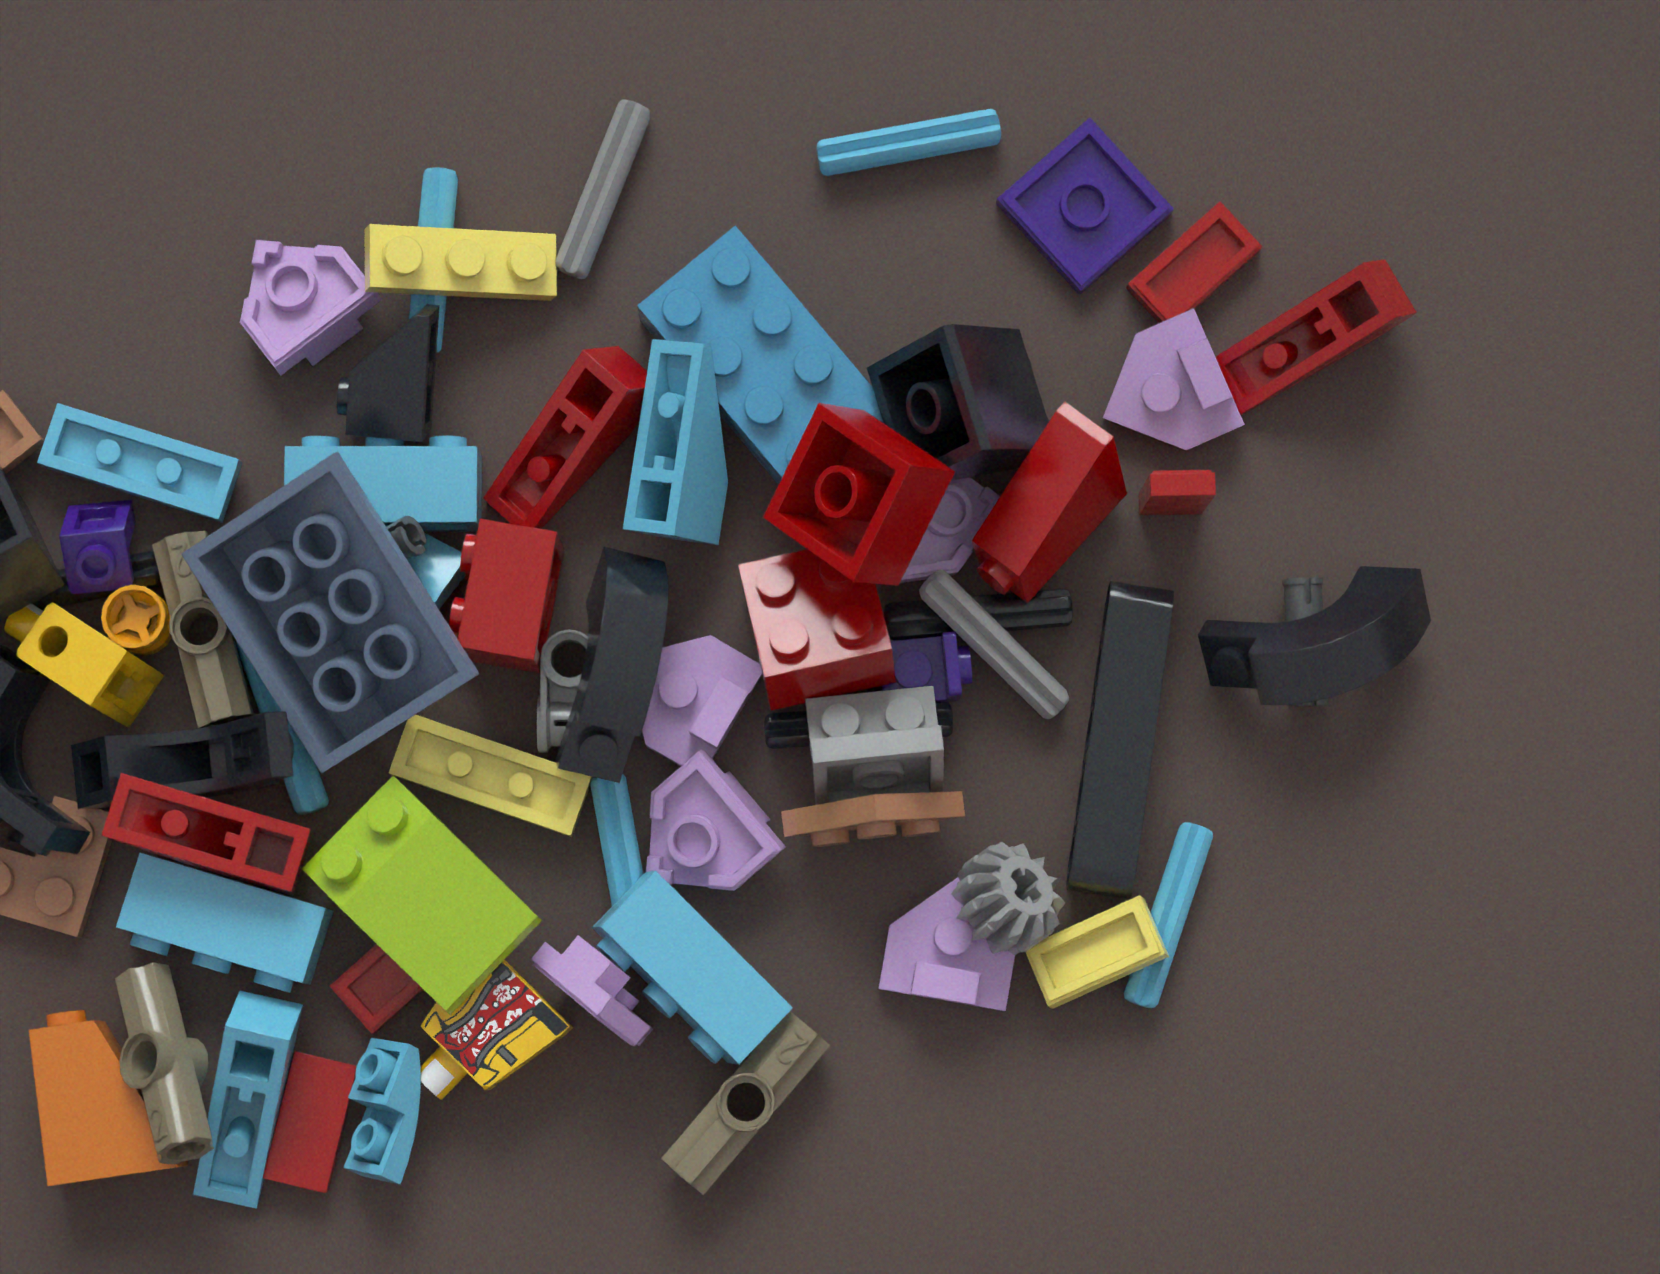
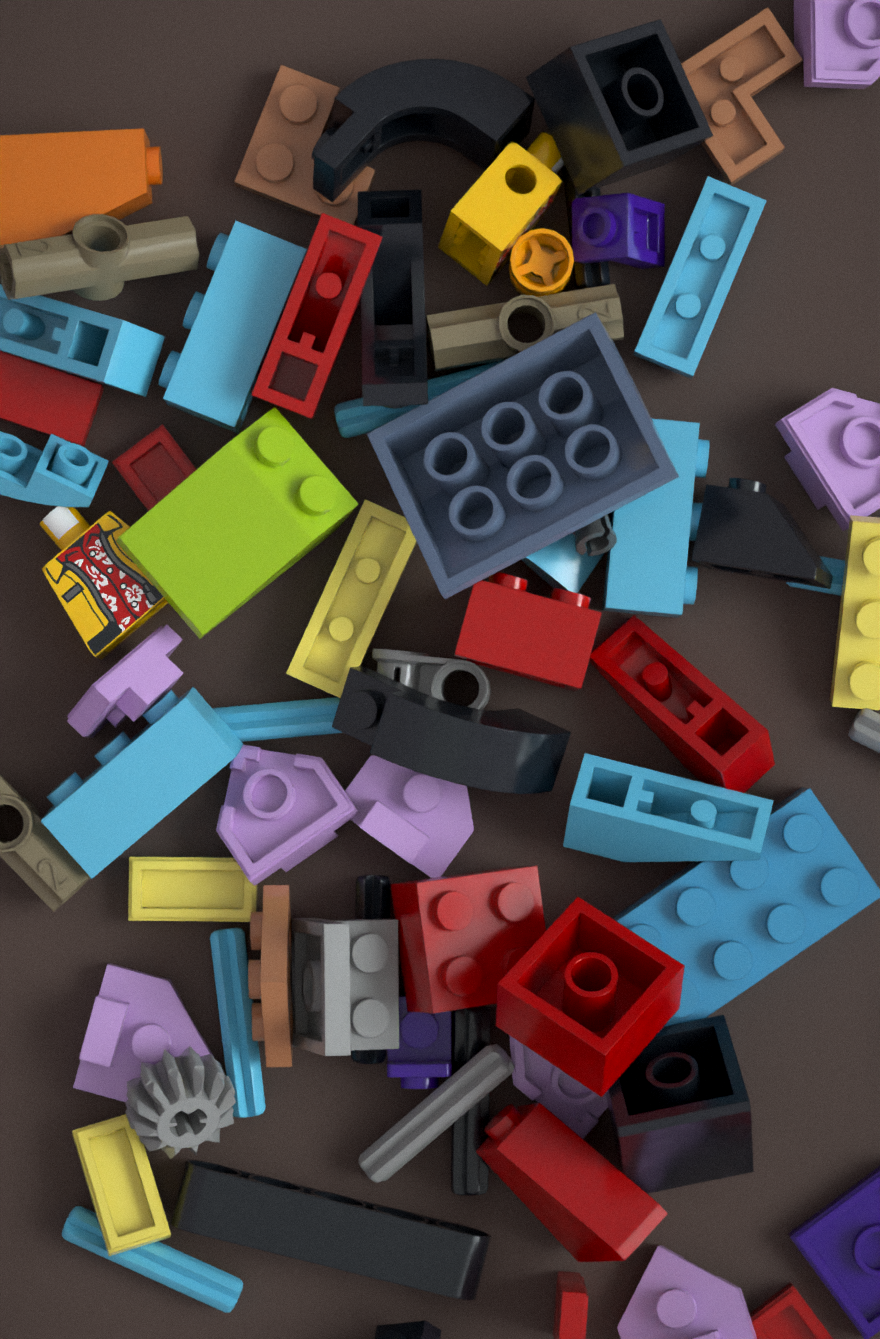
camera: 100 degrees right, 5 degrees up
(796, 913) = (189, 889): none -> light yellow tile
(920, 852) = (235, 1017): none -> medium azure axle

